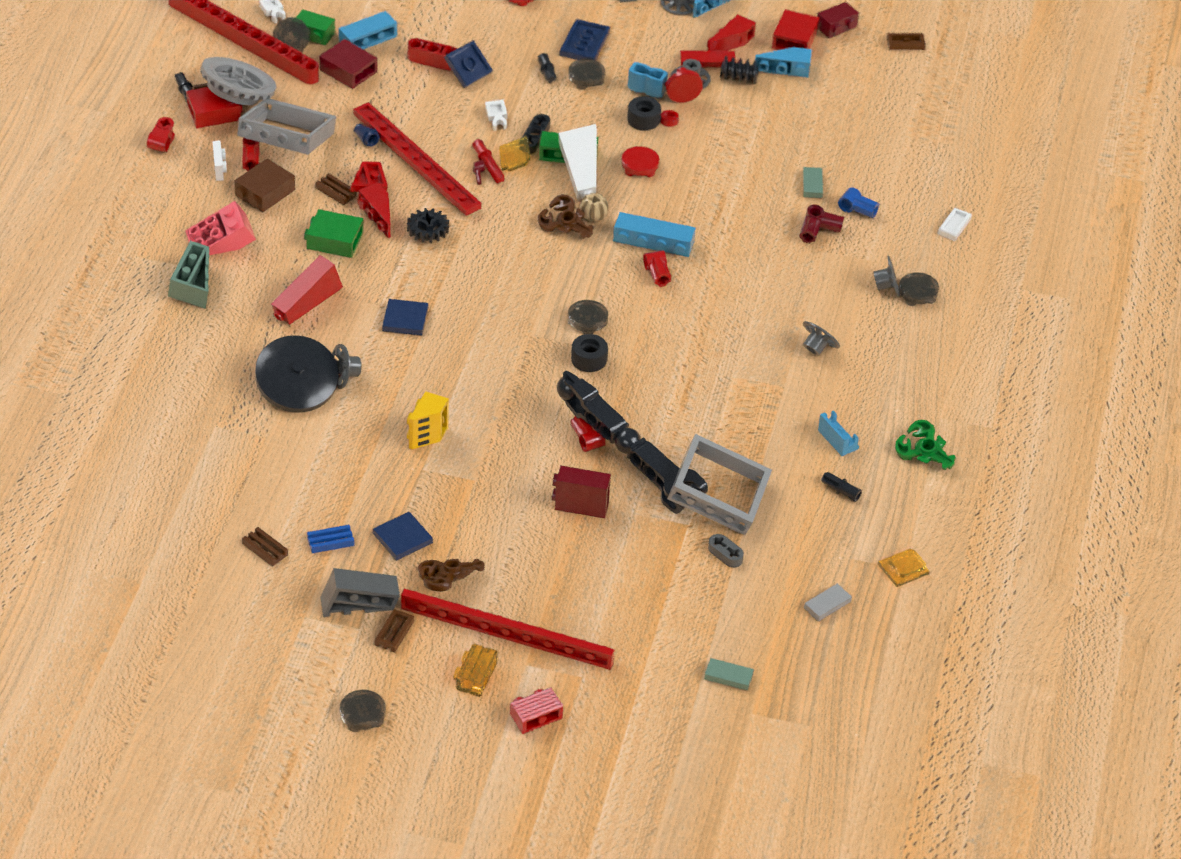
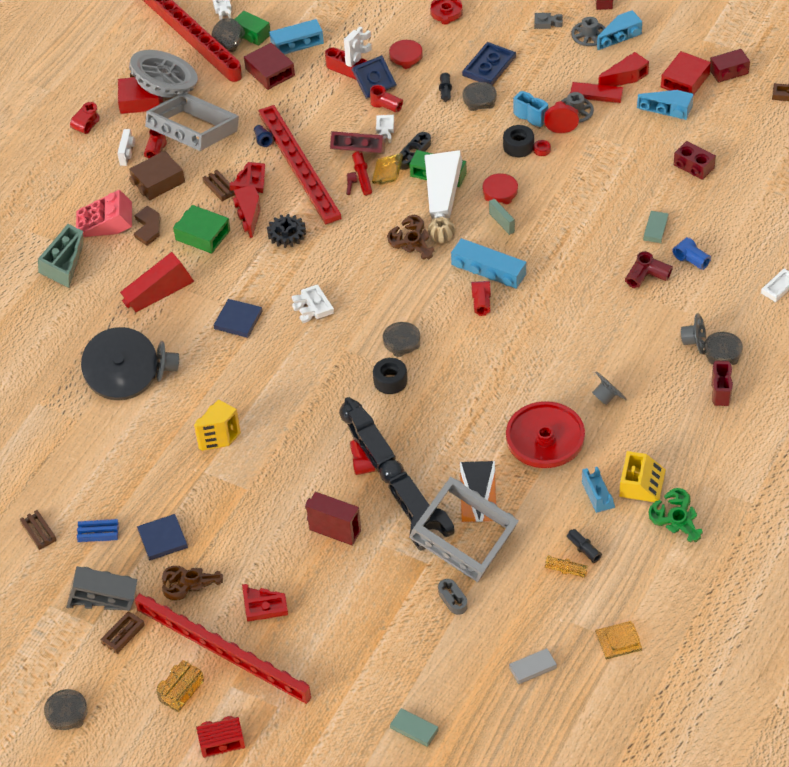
camera: 20 degrees right, 5 degrees up
(183, 83) = (121, 70): black axle -> none
(276, 239) = (151, 228): none -> reddish brown tile
(443, 32) = (355, 46): none -> white plate
(475, 129) = (357, 142): none -> dark red brick
(481, 85) = (380, 98): none -> red piece
(486, 294) = (317, 304): none -> white plate
(492, 38) = (405, 53): none -> red tile
(534, 582) = (263, 603): none -> red wing
(652, 188) = (503, 218): none -> sand green tile
(718, 434) = (480, 478): none -> sticker
(740, 70) = (621, 108): black piece -> none
(770, 388) = (545, 434): none -> red dish
(830, 507) = (566, 566): none -> clear yellow pin
(832, 114) = (694, 160): none -> dark red brick
(878, 416) = (641, 478): none -> yellow slope
(930, 319) = (721, 383): none -> dark red brick

